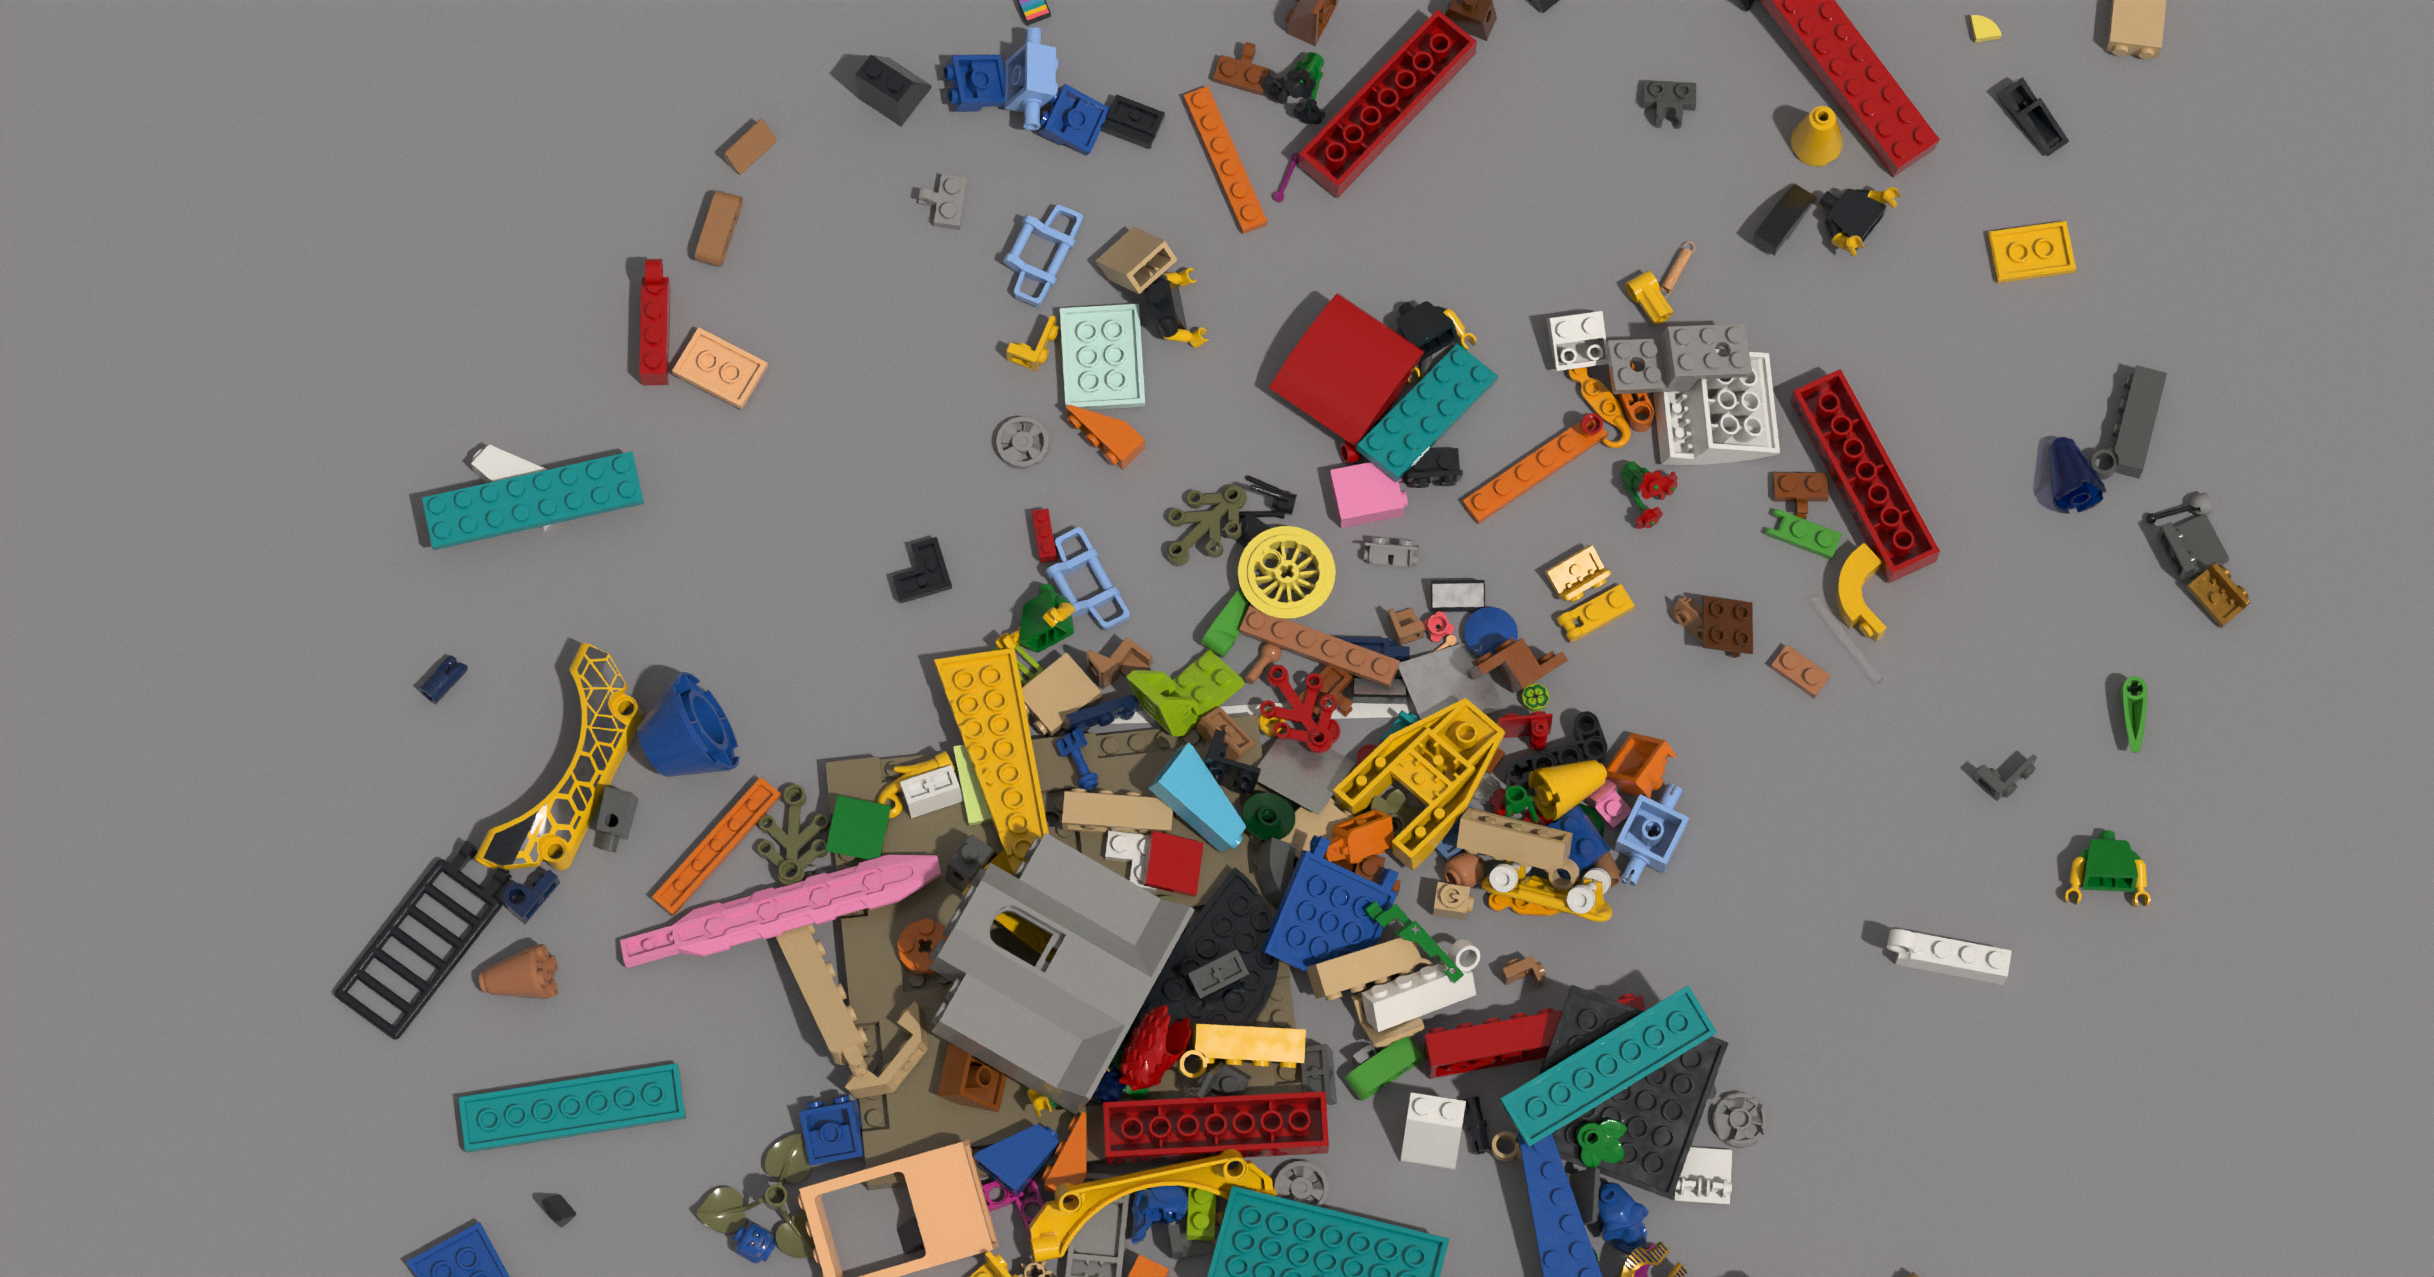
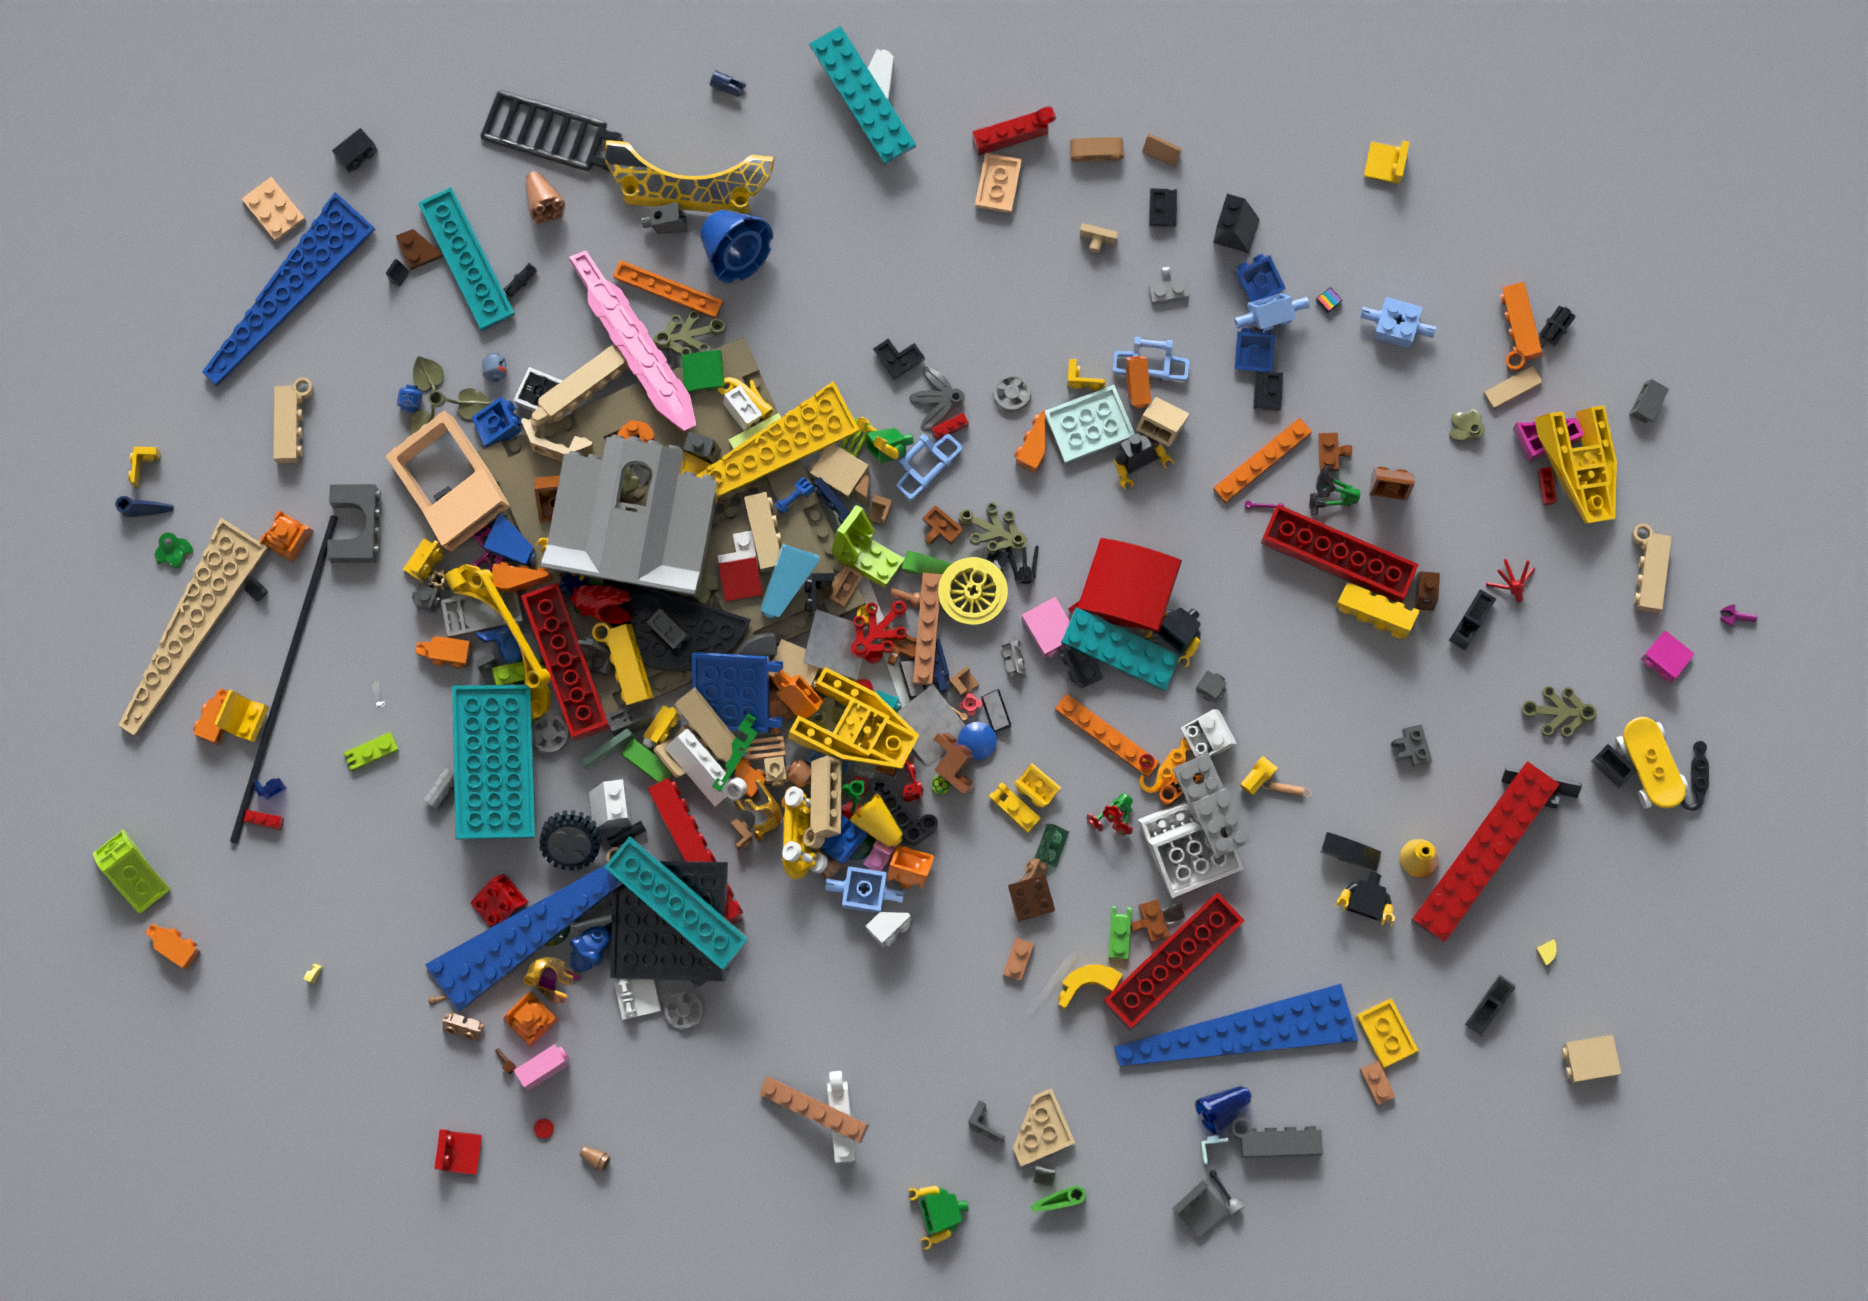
camera: 75 degrees right, 5 degrees up
(352, 1217) = (355, 150): none -> black brick
(531, 1174) = (417, 249): none -> reddish brown wing
(534, 898) = (596, 187): dark blue plate -> none
(629, 1043) = (520, 280): none -> black pin
(748, 1113) = (494, 367): none -> sand blue head
(805, 1062) = (533, 387): none -> piece
(831, 171) = (1163, 207): none -> black plate
(843, 264) = (1098, 236): none -> tan tile
(1000, 530) = (943, 397): none -> dark grey plant
(1070, 272) = (1138, 381): none -> orange window
(1180, 587) = (941, 525): none -> dark orange plate
(1271, 808) = (800, 626): dark green dish -> none
(1339, 1032) = (662, 724): none -> yellow bracket
(1350, 1113) = (607, 748): none -> sand green tile
(1416, 886) = (768, 747): none -> light nougat tile
(1451, 931) = (749, 775): none -> orange slope
(1467, 1194) = (570, 840): none -> wheel
(1479, 81) = (1377, 611): none -> yellow wedge
(1505, 931) = (766, 811): none -> pearl gold piece
(1512, 316) = (1212, 686): none -> dark grey brick
(1604, 1145) = (629, 919): green plate -> none
(1659, 583) = (1051, 844): none -> clear green slope
(1713, 820) = (887, 926): none -> white slope
(1796, 459) = (1173, 912): none -> clear smoke slope
(1928, 983) = (814, 1109): none -> nougat plate
(1984, 367) = (1288, 1023): none -> blue wing
(2035, 708) = (1042, 1130): none -> tan plate
(2091, 283) = (1377, 1083): none -> nougat plate
(2094, 724) = (1044, 1175): none -> clear smoke slope
(2115, 517) = (1210, 1140): none -> light aqua bracket
(2219, 594) = (1167, 1236): pearl gold bracket -> none

